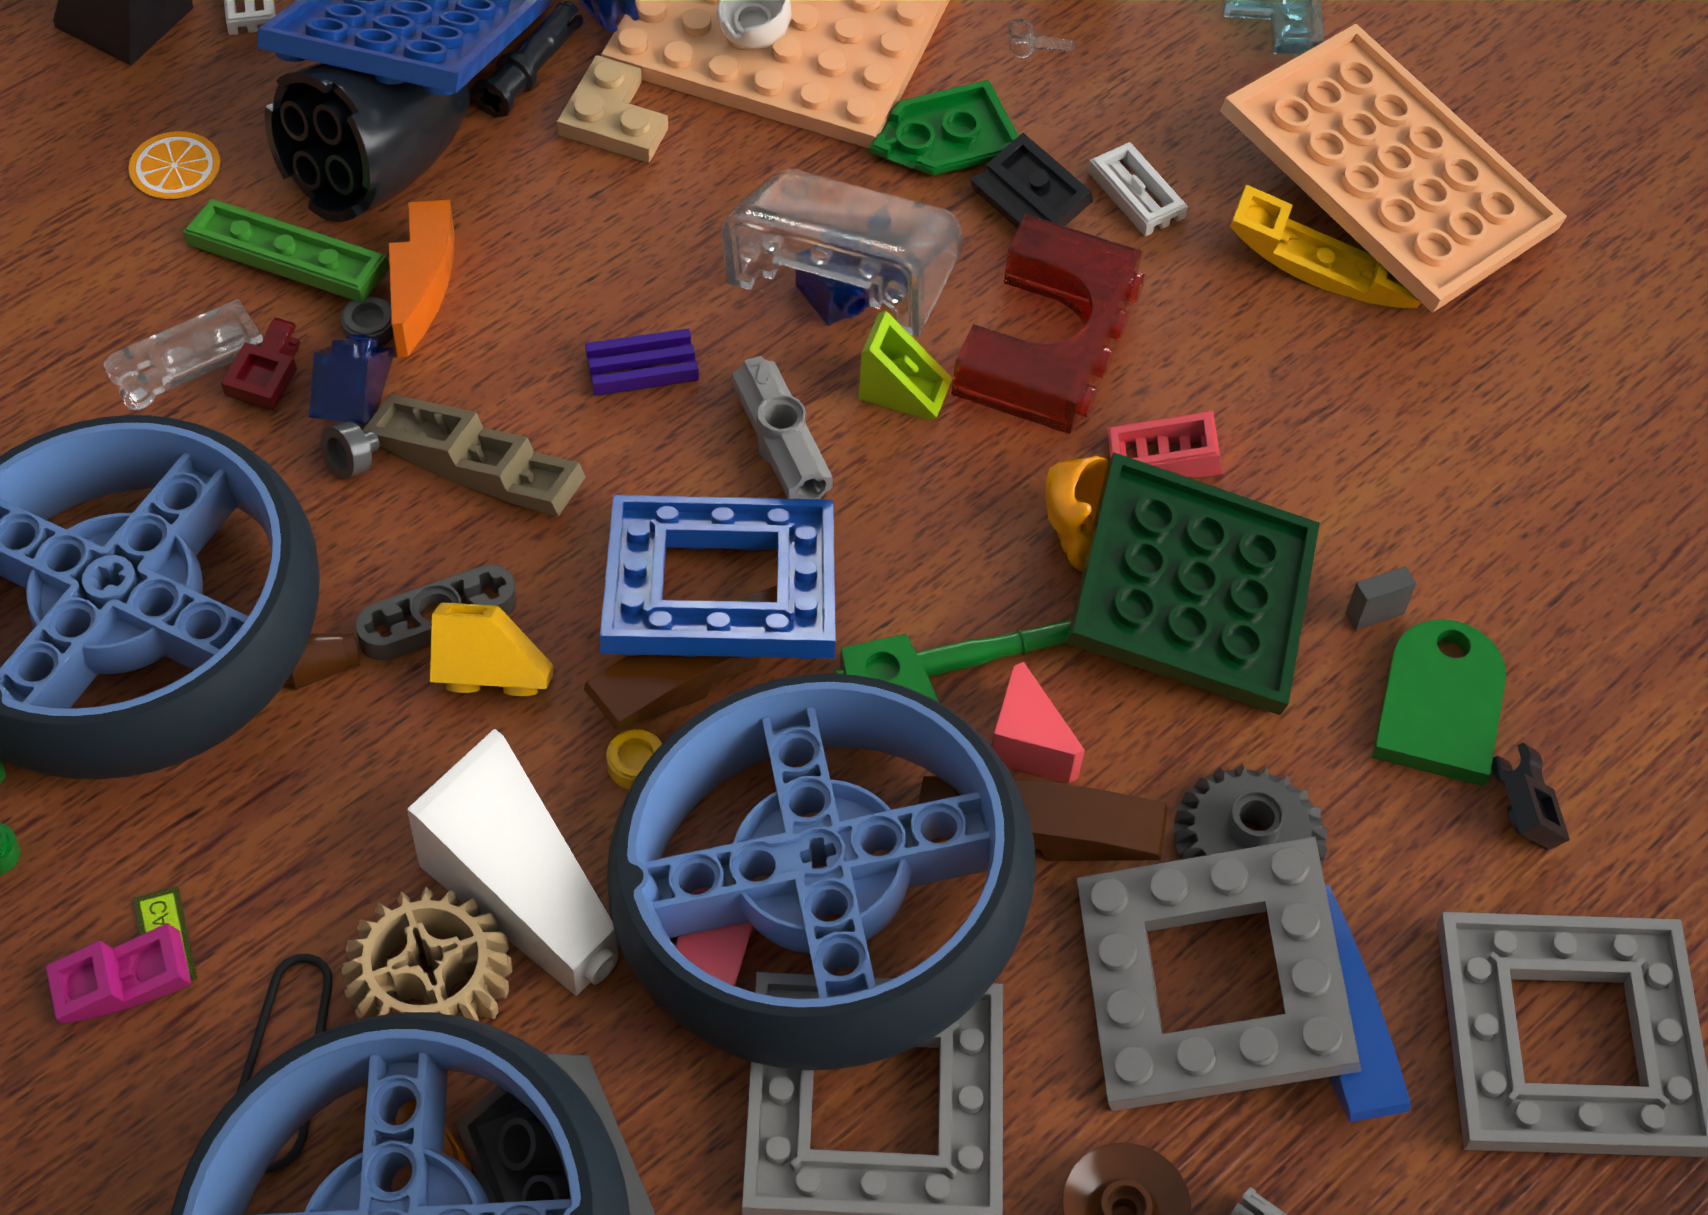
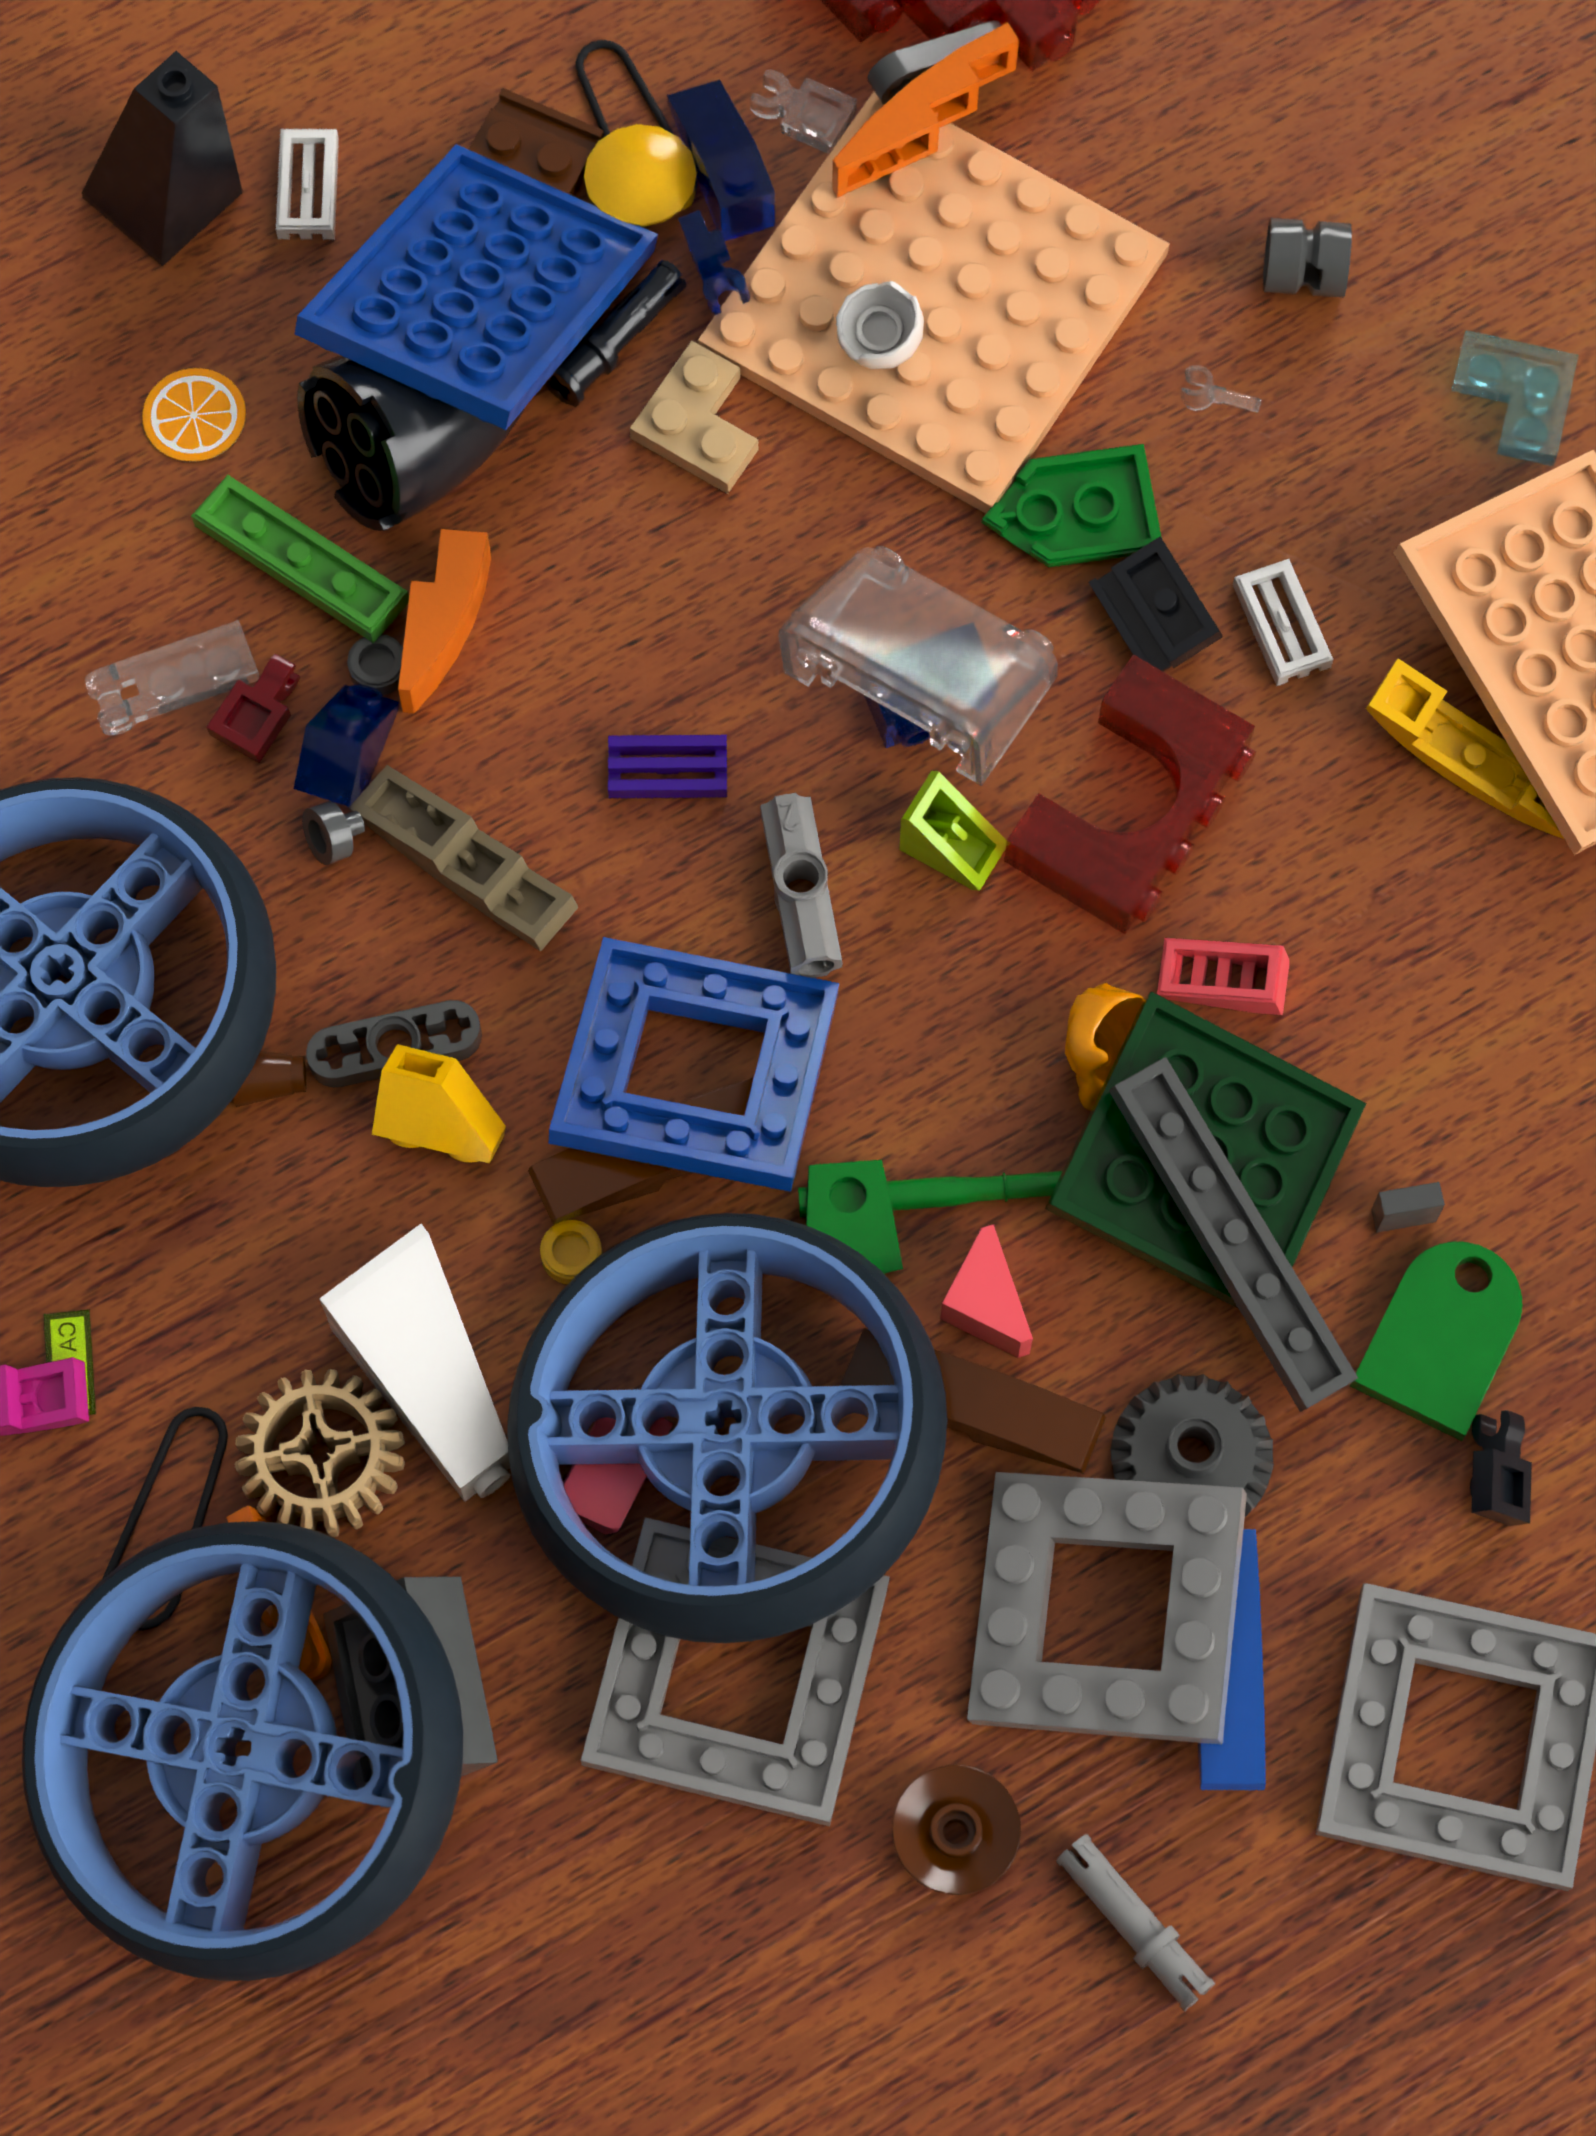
camera: 15 degrees right, 15 degrees up
(1242, 634) = (1233, 1234): none -> dark grey plate

